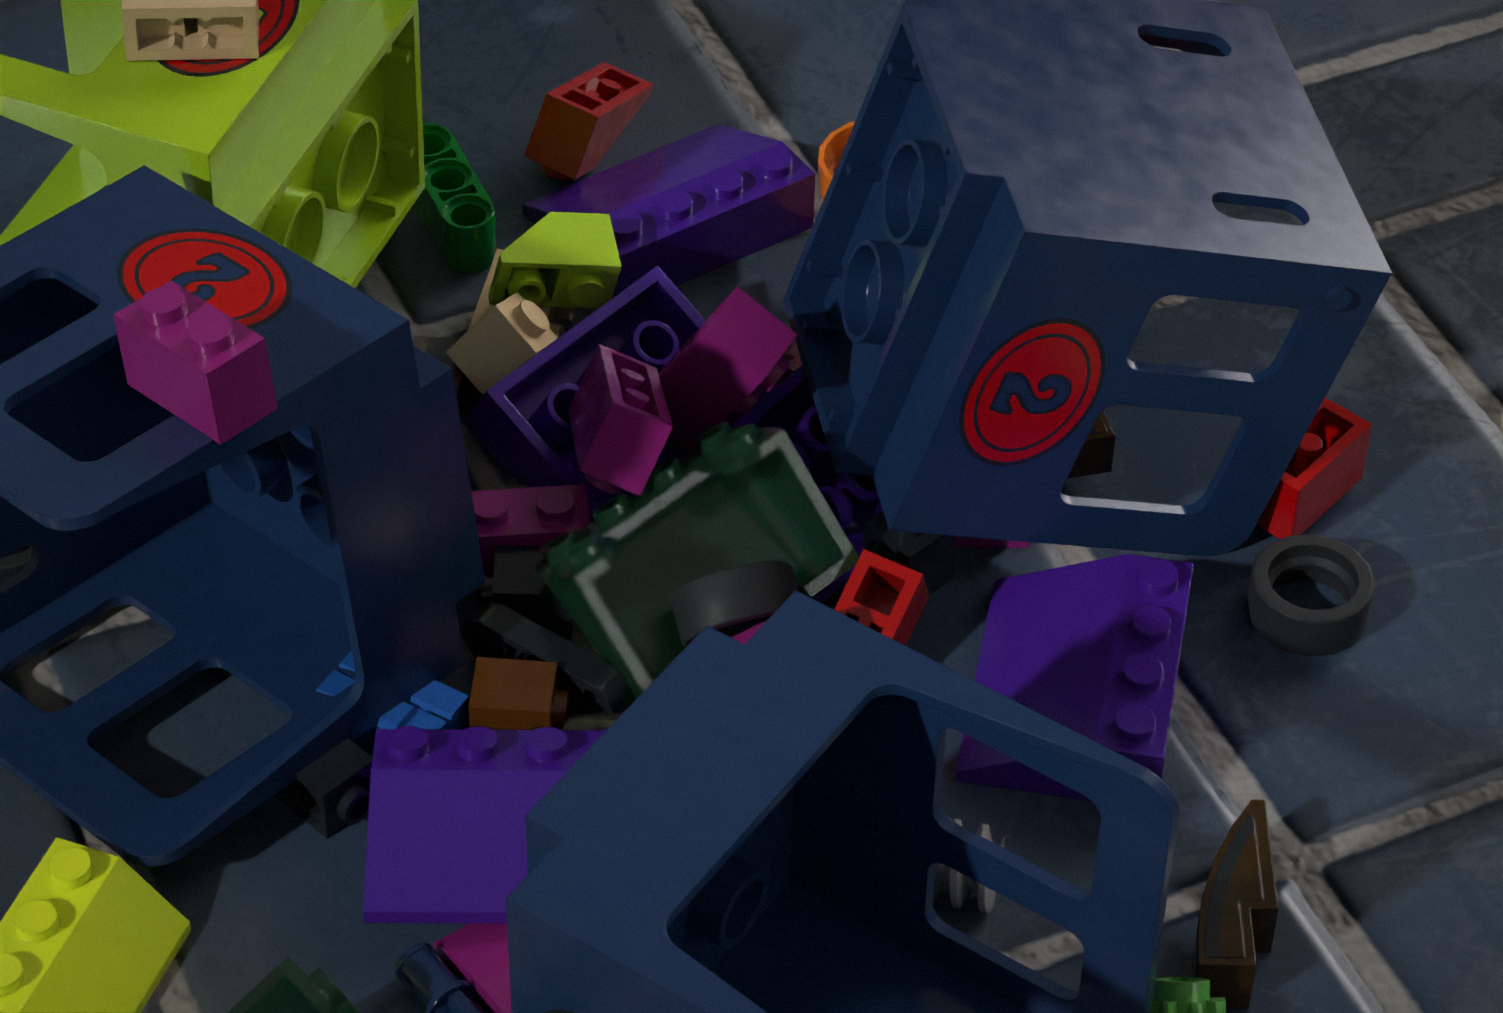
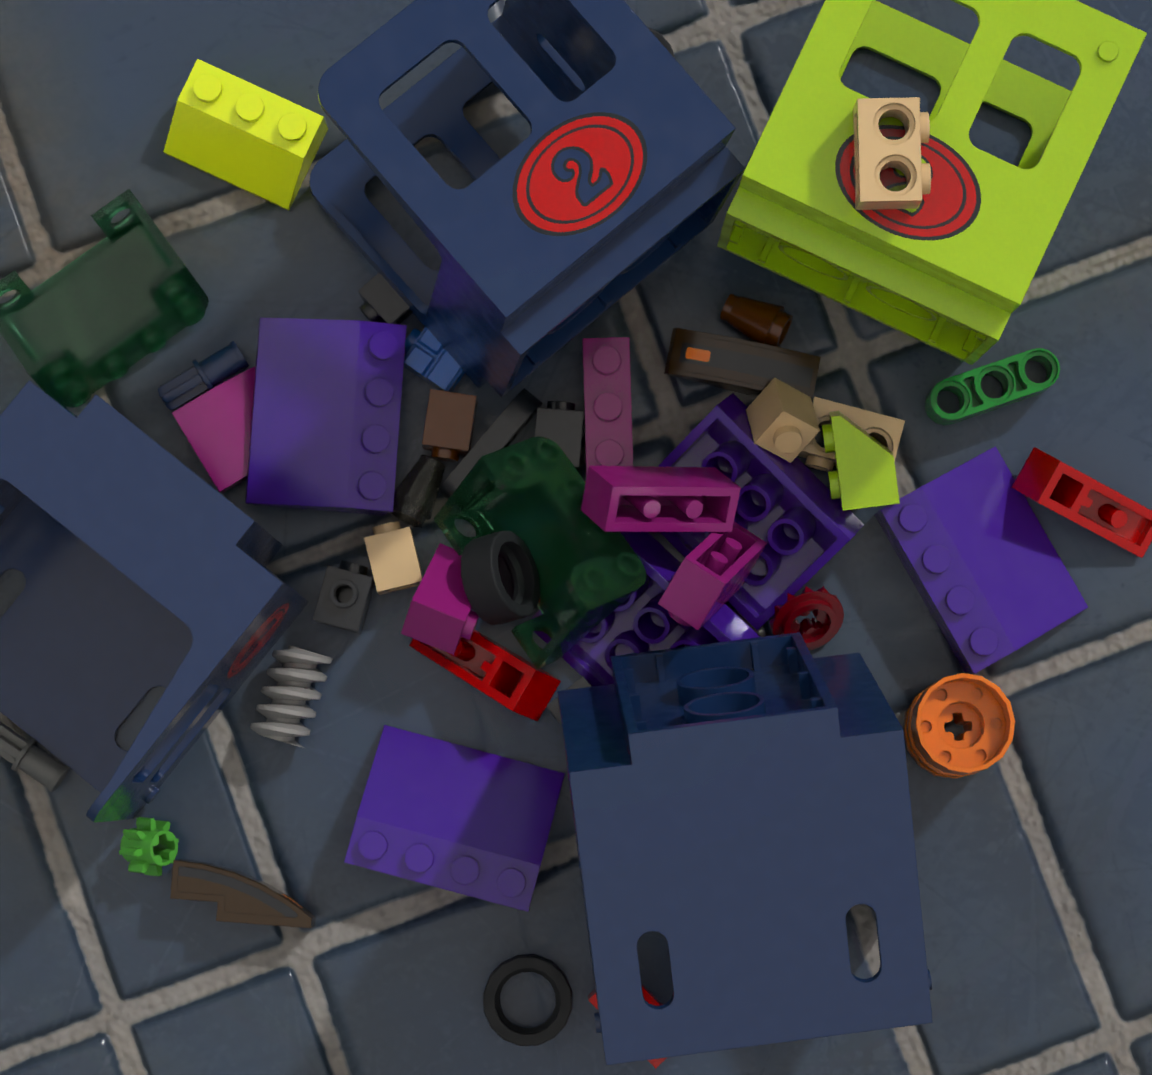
camera: 90 degrees right, 40 degrees up
(195, 361) = (440, 165): magenta brick -> none

